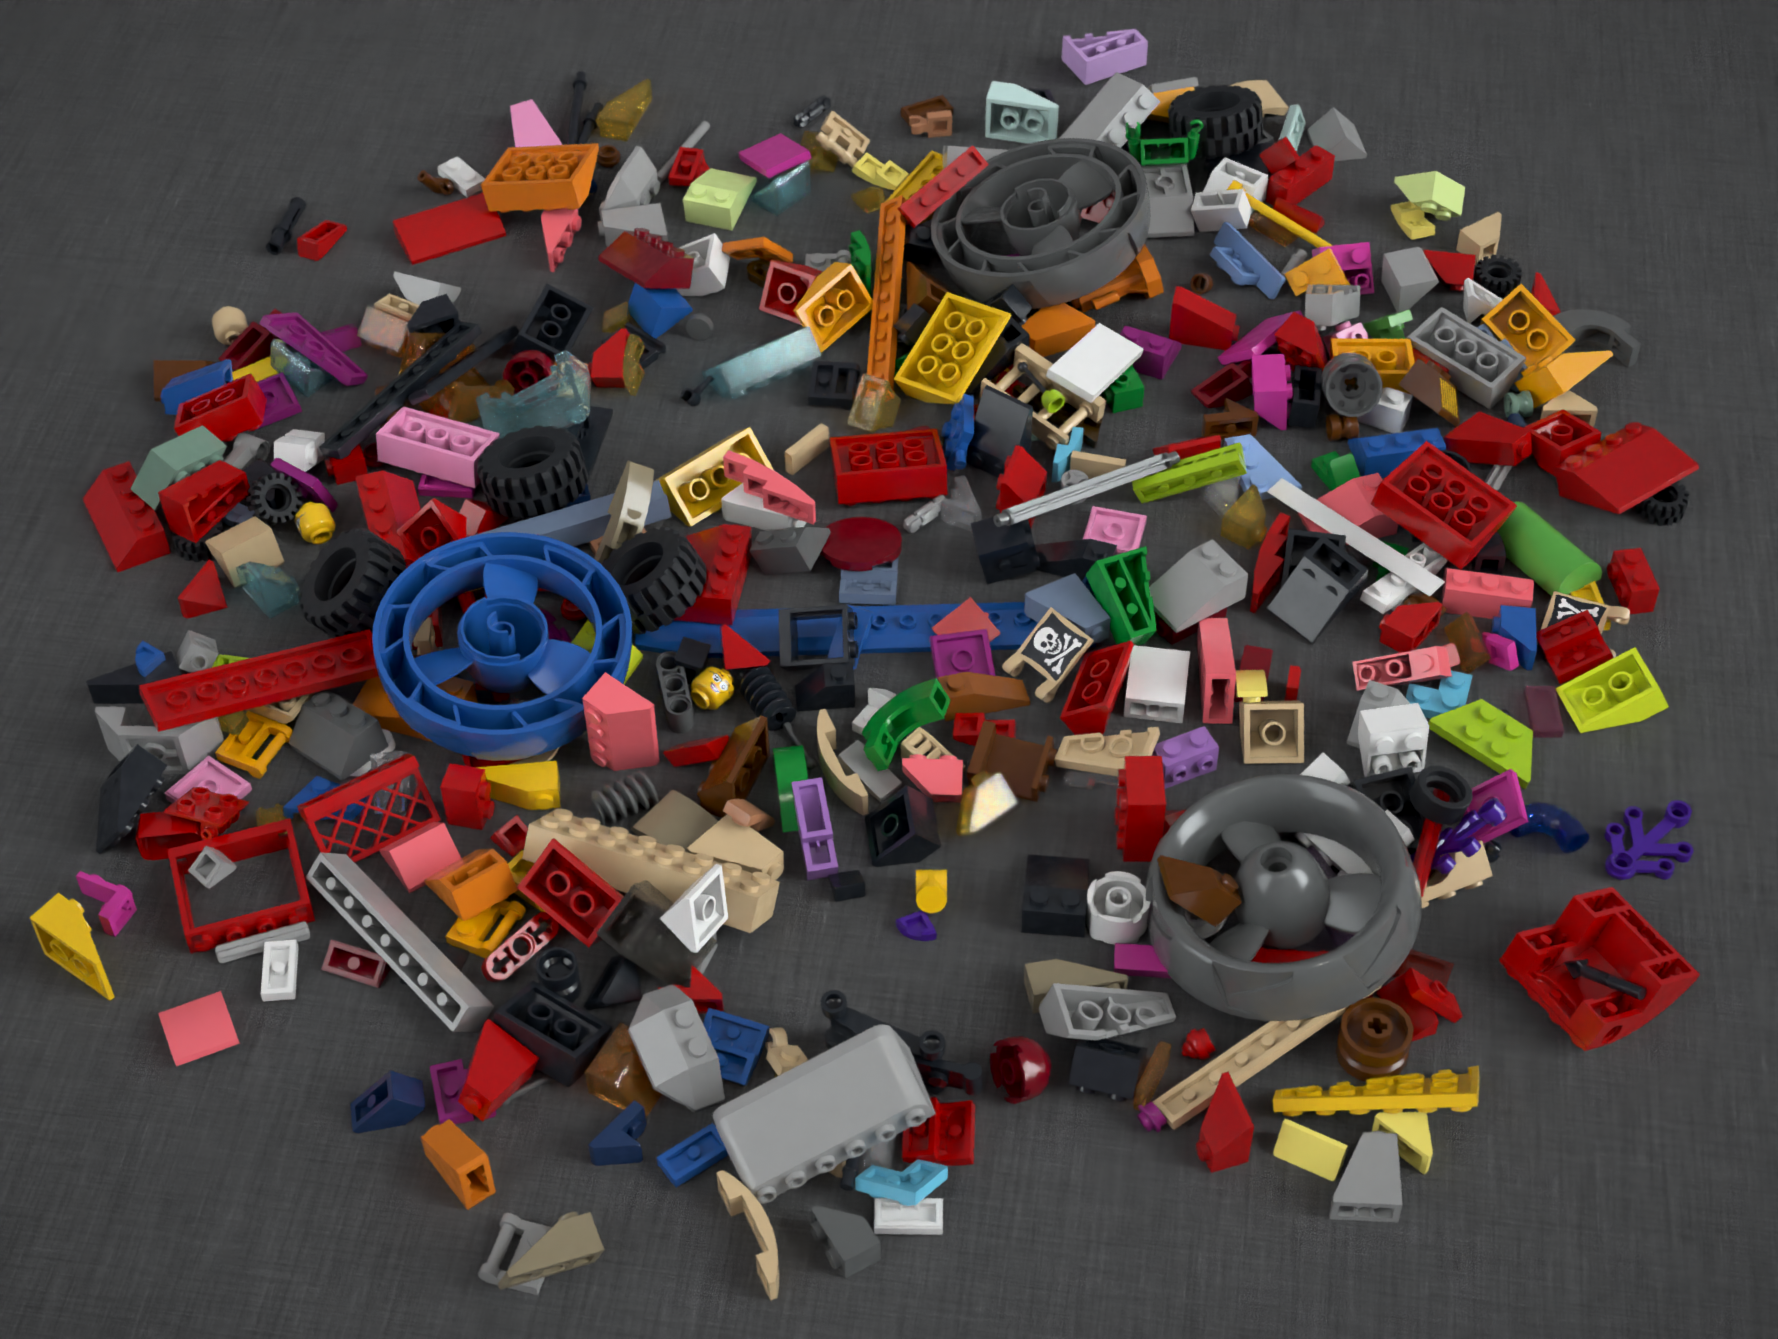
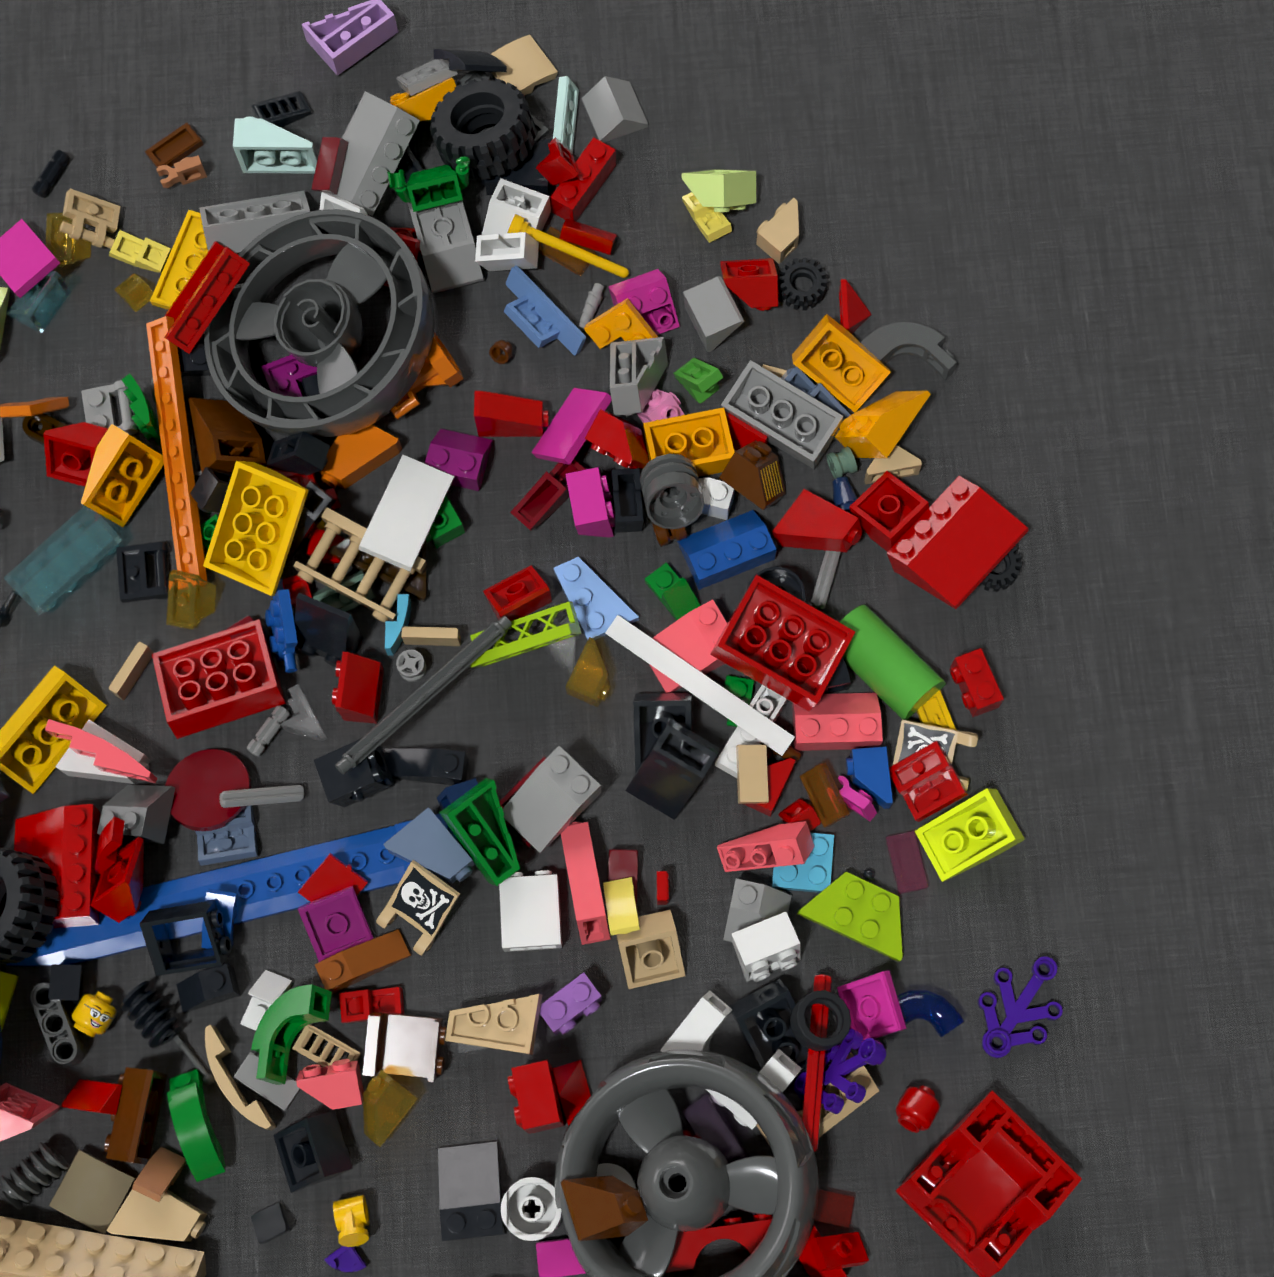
camera: 10 degrees left, 25 degrees up
(738, 652) = (113, 969): red slope -> none
(758, 556) = (108, 842): none -> red slope
(767, 587) = (122, 883): none -> red slope
(814, 828) = (226, 1181): medium lavender slope -> none
(912, 551) = (261, 796): none -> light grey axle
(1051, 399) = (368, 572): lime hinge -> none
(1072, 119) = (329, 165): none -> dark red slope
(1096, 689) = (471, 944): red slope -> none
(1116, 528) = (460, 717): bright pink tile -> none
(1203, 76) = (470, 60): none -> black slope
(1233, 422) = (563, 545): reddish brown slope -> none
(1270, 561) = (618, 738): red slope -> none
(1398, 602) = (752, 774): none -> tan tile
(1477, 300) = (791, 327): white slope -> none
(1530, 900) = (917, 1109): none -> red head
(1581, 968) = (970, 1185): black piece -> none

